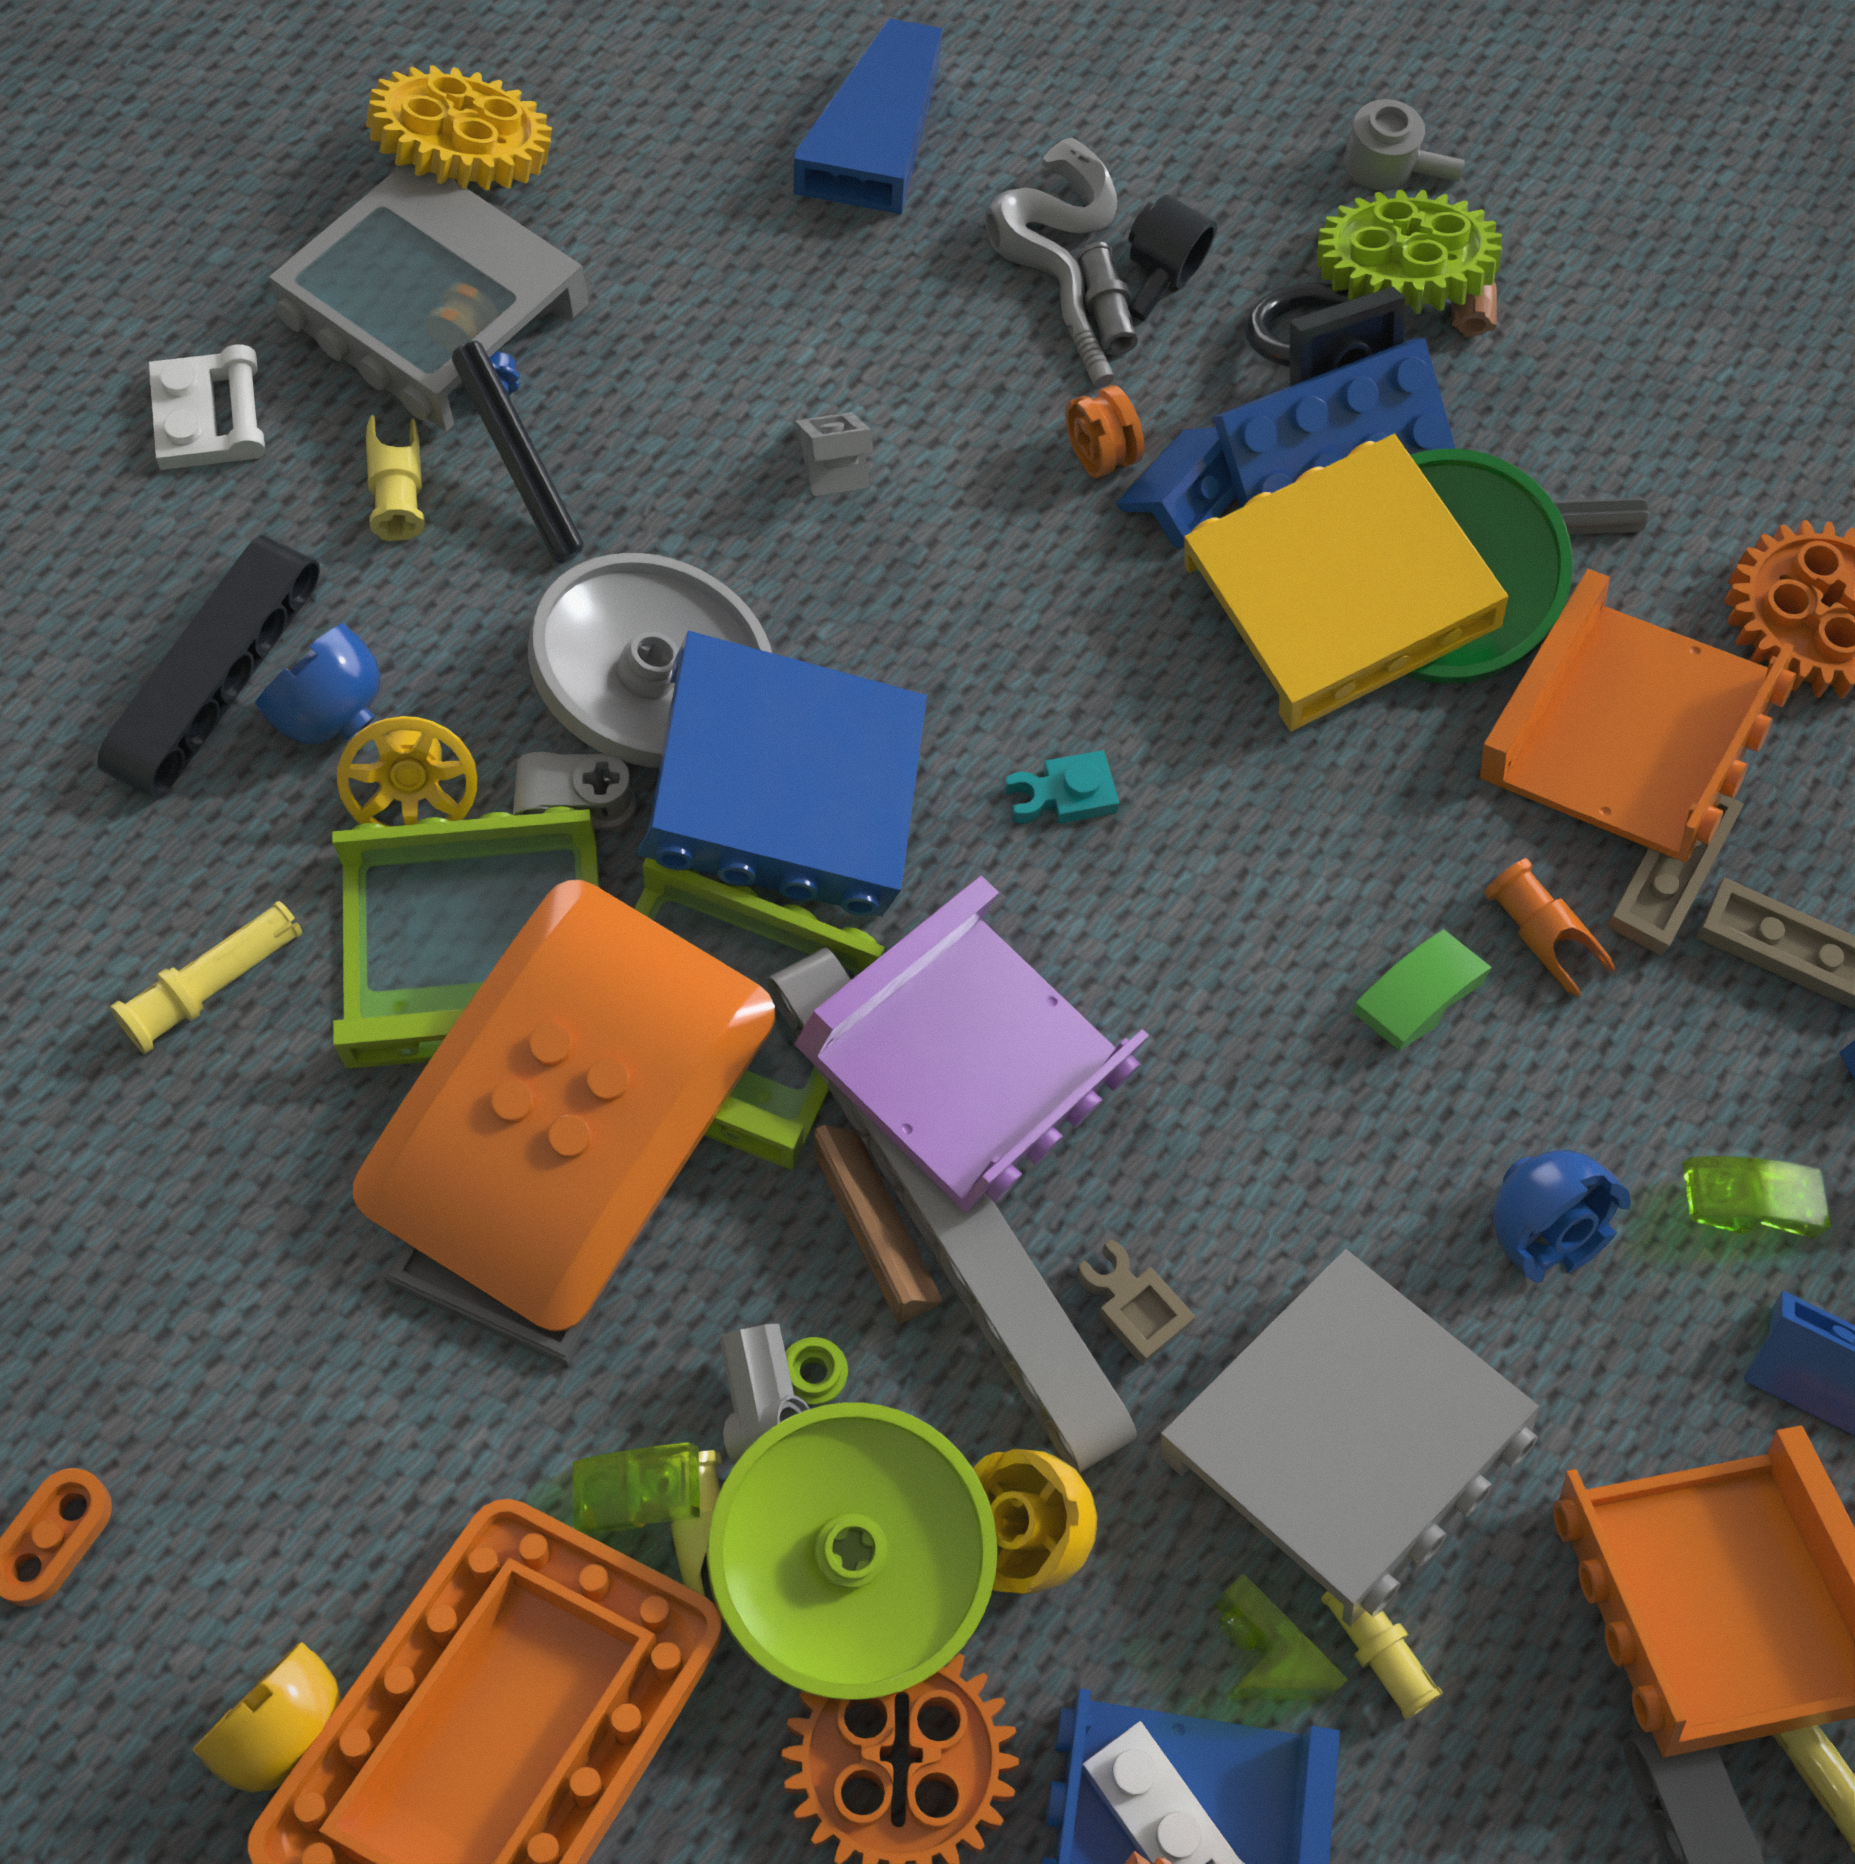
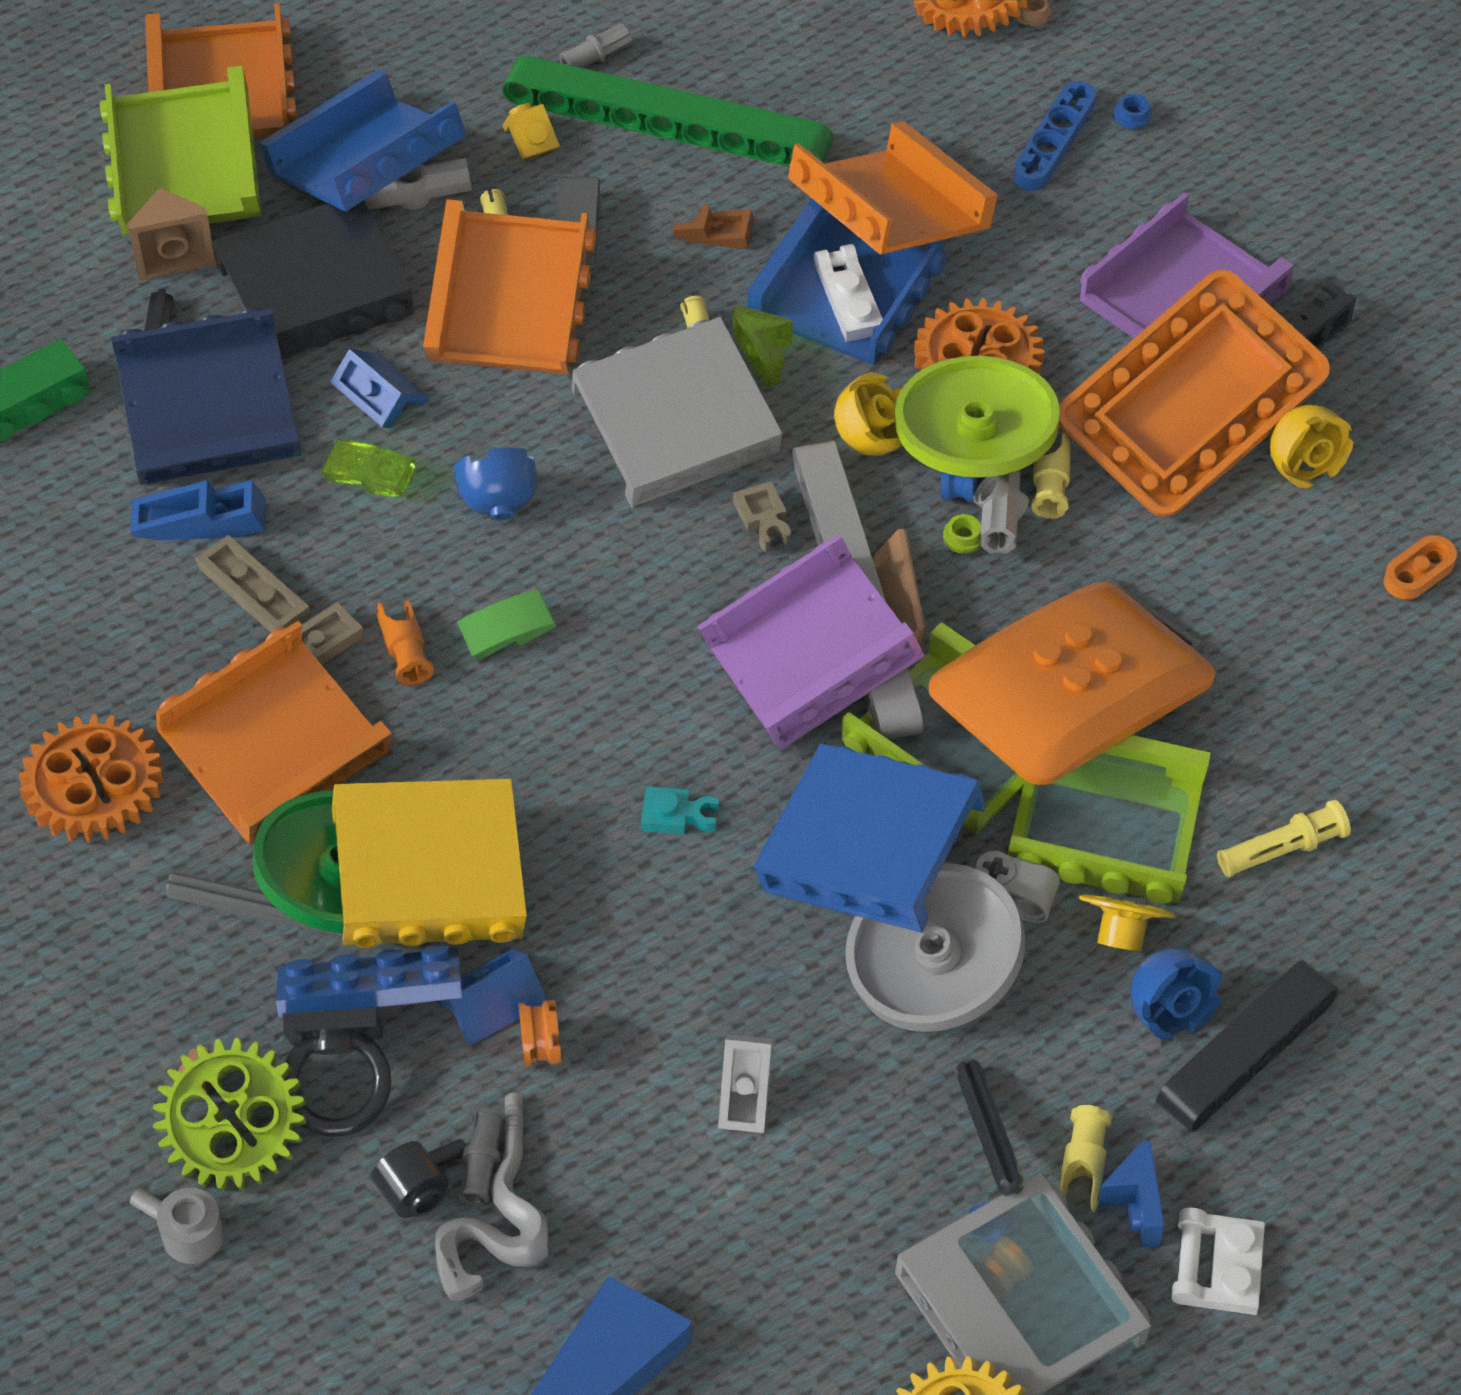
camera: 155 degrees left, 10 degrees down
(325, 449) = (1136, 1186): none -> blue slope
(636, 1488) = (1079, 481): clear neon green slope -> none

